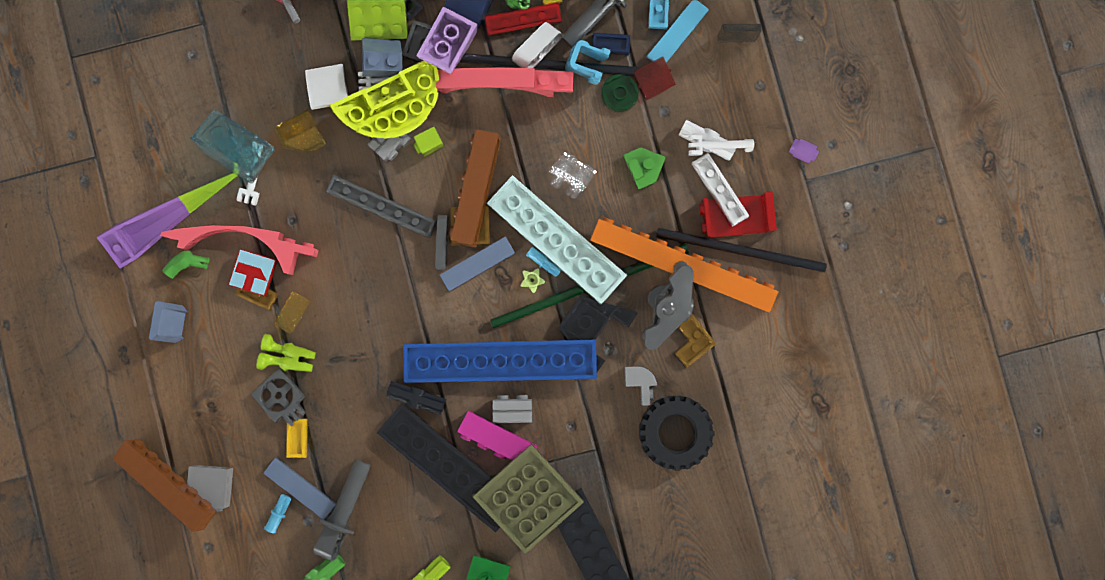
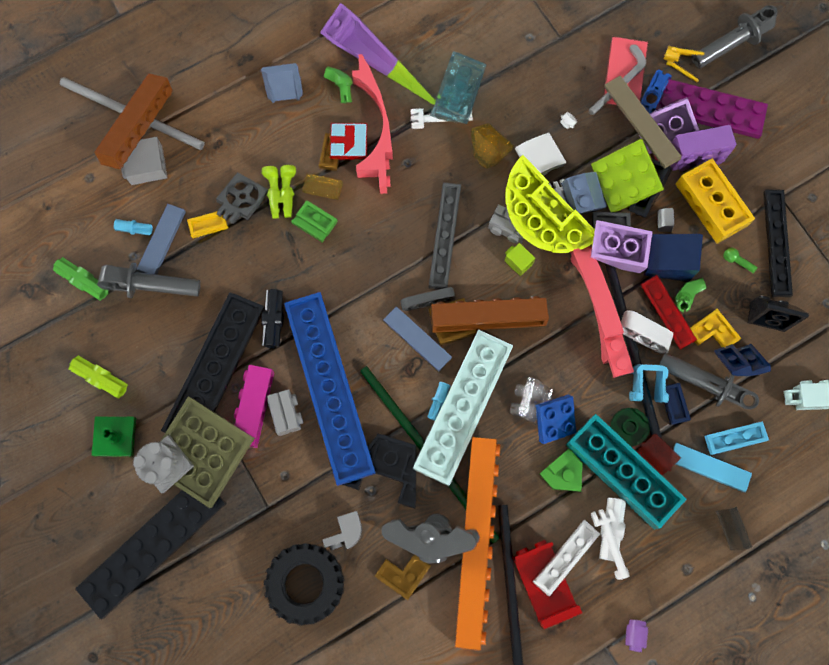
camera: 70 degrees right, 10 degrees down
(144, 494) = (112, 104): none -> light grey piece
(298, 46) = (568, 120): none -> white plate
(327, 330) = (314, 221): none -> bright green plate
(528, 276) = (417, 400): yellowish green plate -> none
(531, 535) = (161, 463): none -> light grey piece
(594, 158) = (556, 419): none -> blue plate
(660, 111) = (626, 472): none -> teal brick

